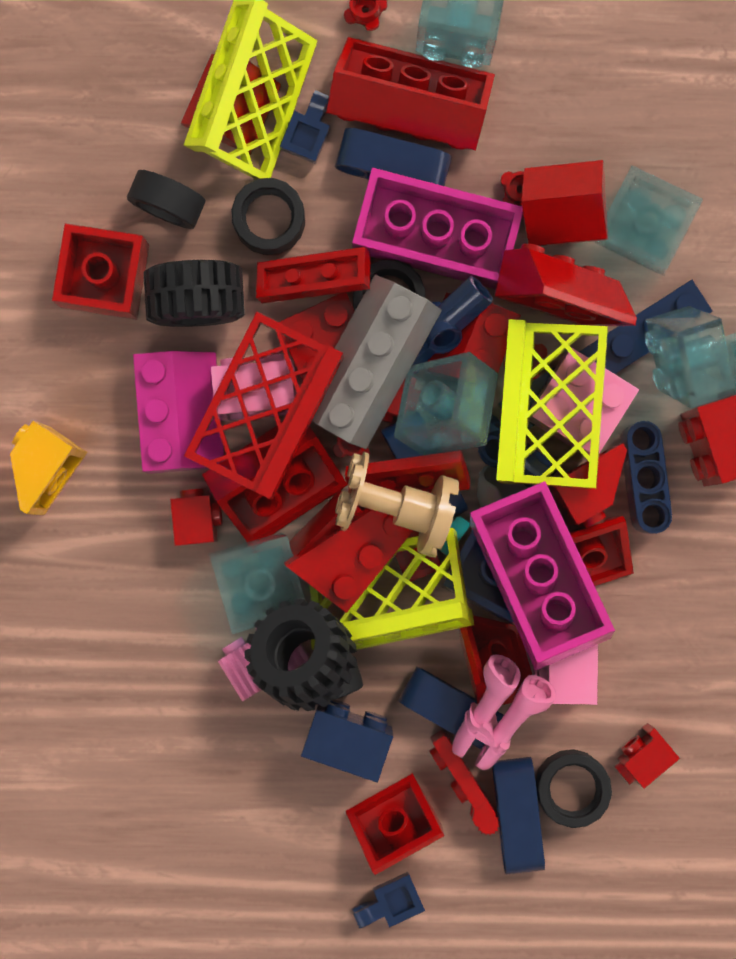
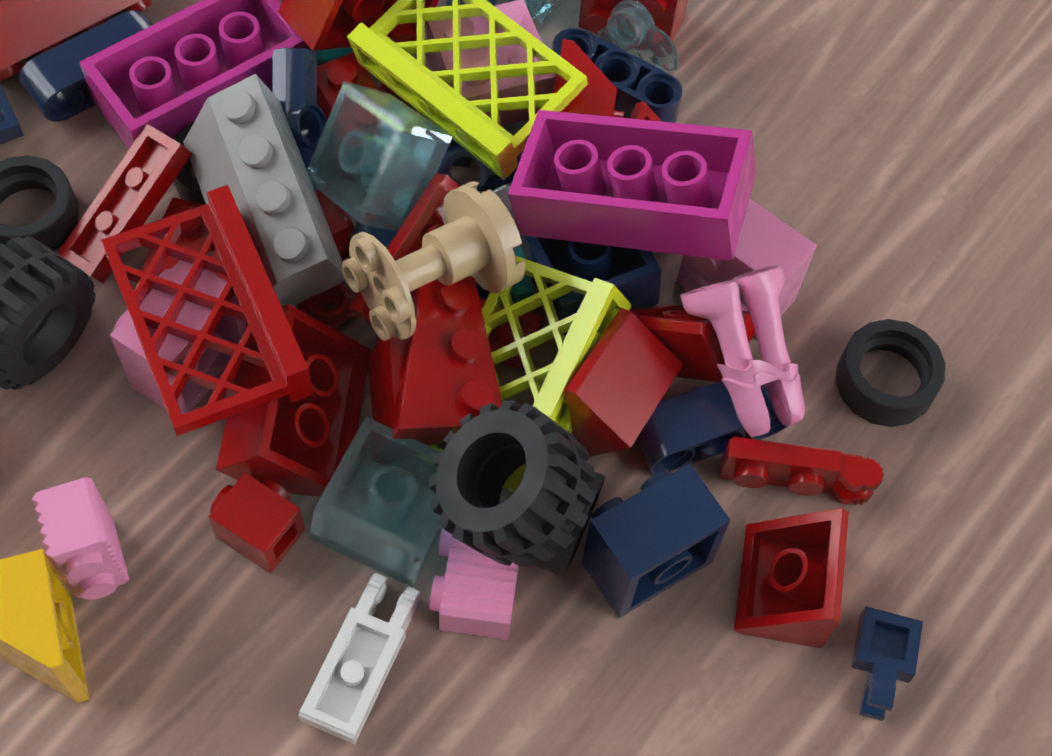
camera: 55 degrees left, 25 degrees down
(104, 448) = (81, 538): none -> bright pink brick
(166, 636) = (358, 663): none -> white hinge
(171, 403) = (125, 443): dark pink slope -> none
(423, 657) = (619, 385): none -> red slope
(518, 815) = (915, 461): dark blue beam -> none
(645, 757) = (908, 278): red brick -> none
(682, 467) = (634, 31): none -> clear light blue plate

